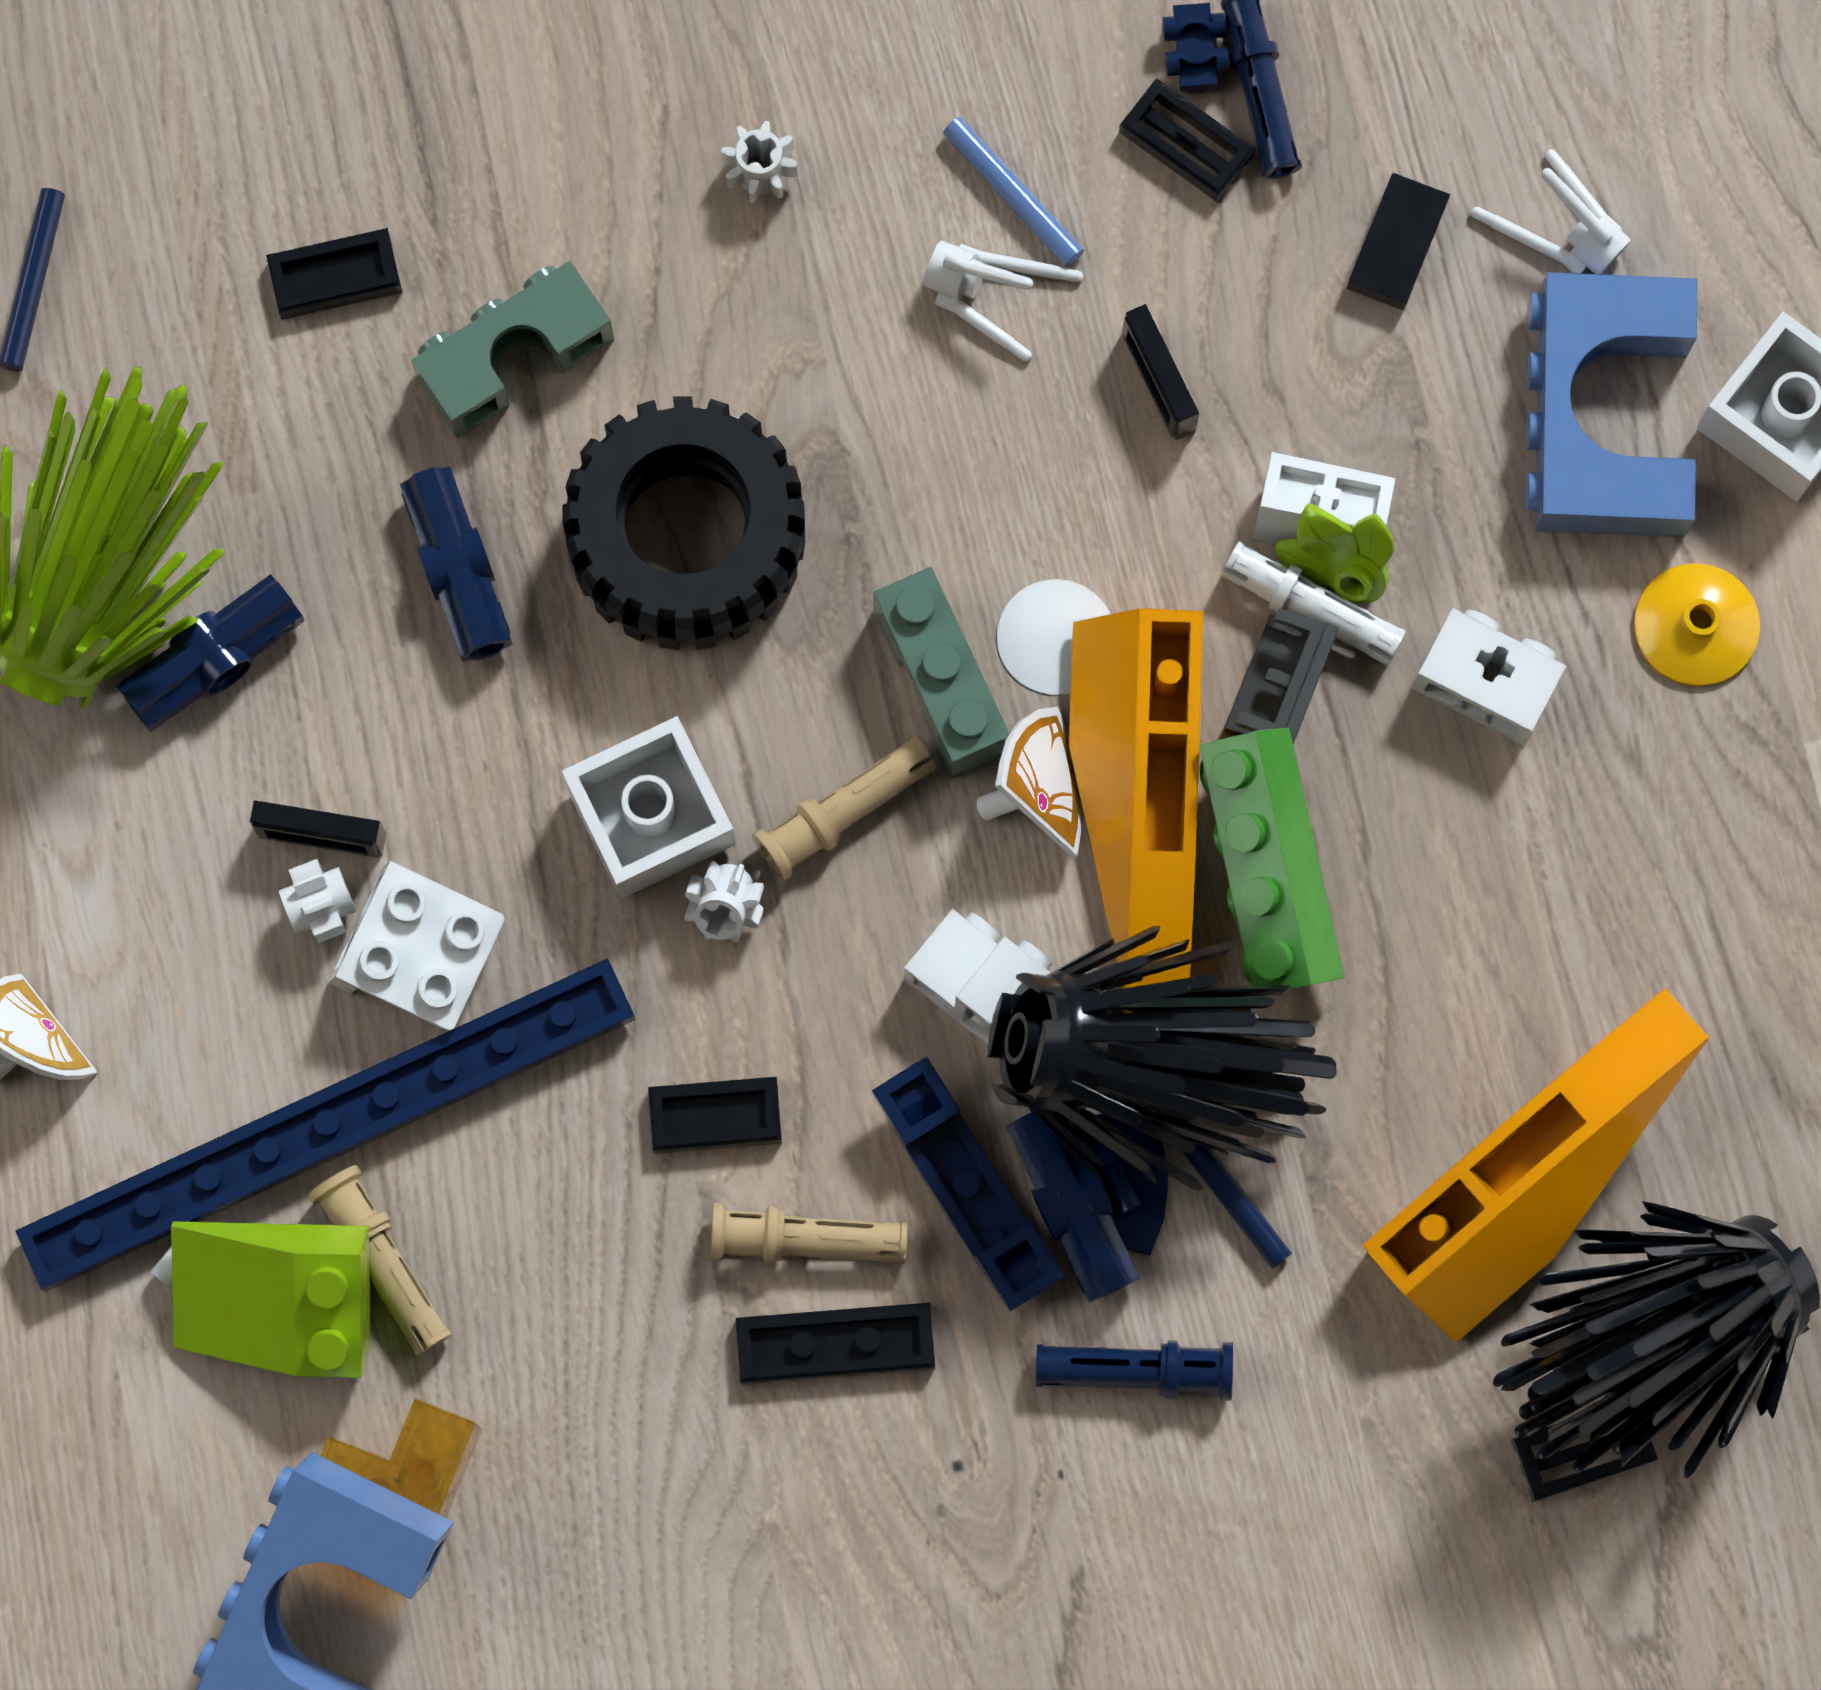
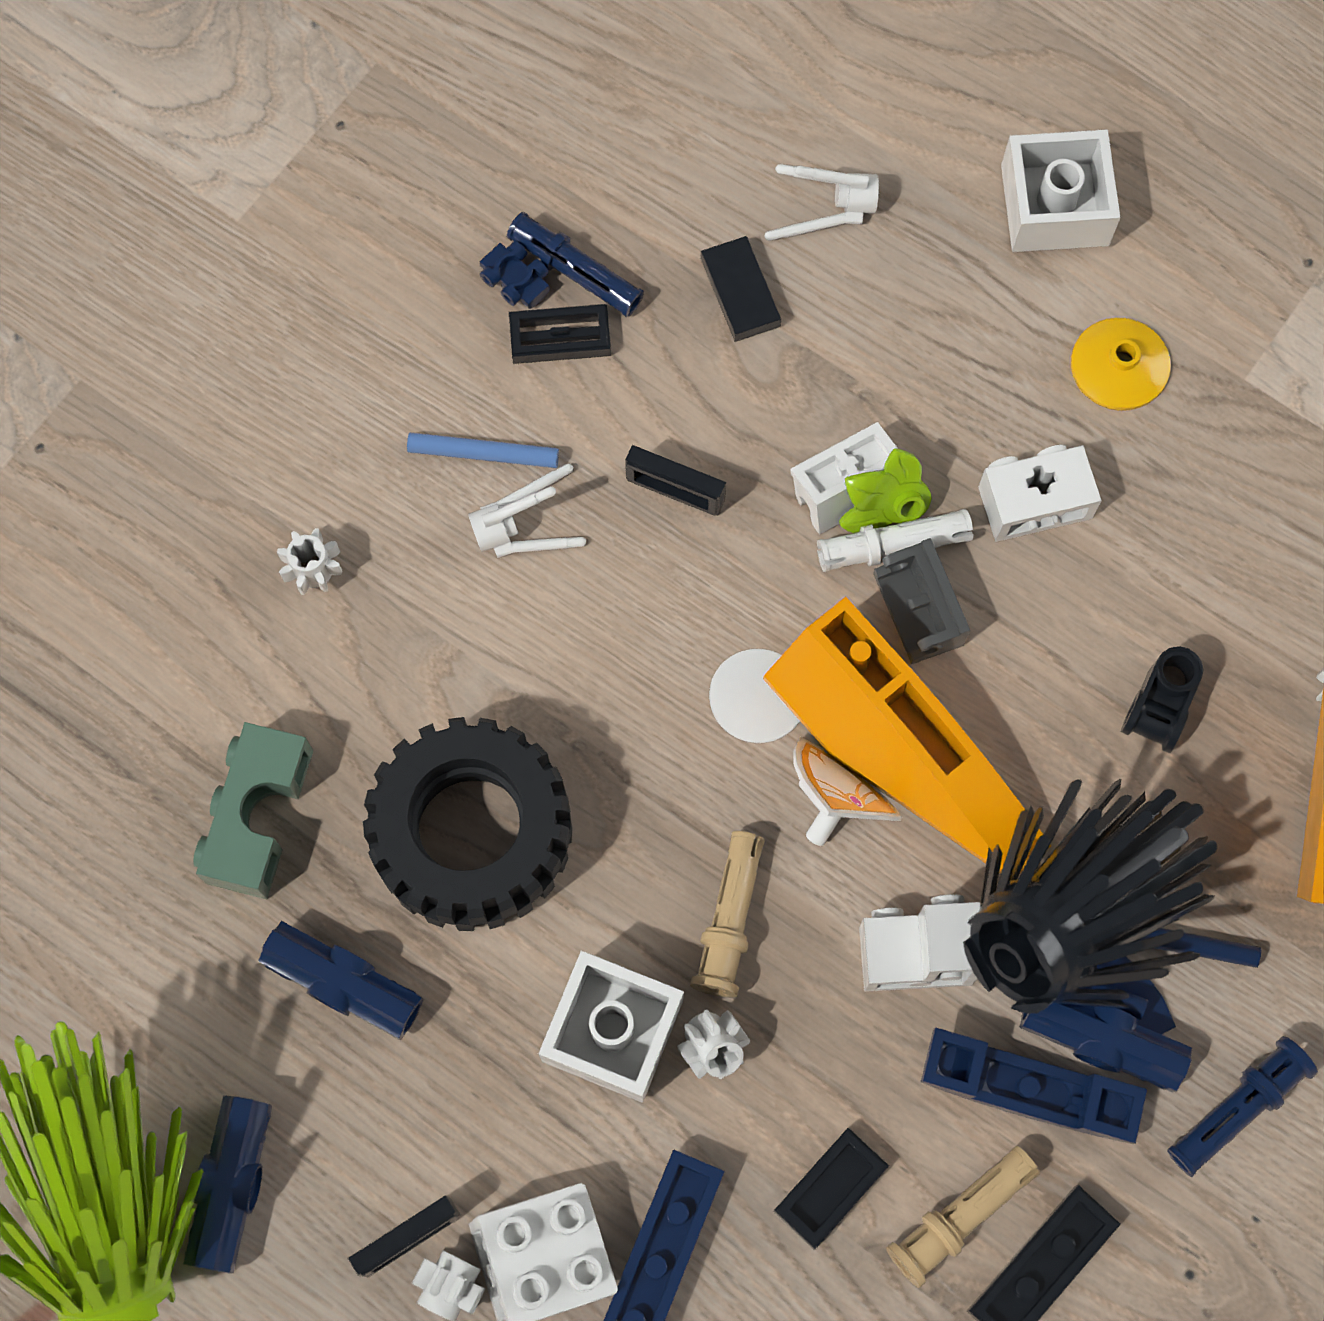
camera: 40 degrees left, 5 degrees down
(334, 273) = (92, 863): black tile -> none
(943, 671) = (692, 764): sand green arch -> none
(1270, 859) = (1027, 715): bright green brick -> none
(1415, 964) = (1160, 706): none -> black piece
(1575, 479) = (973, 336): medium blue arch -> none

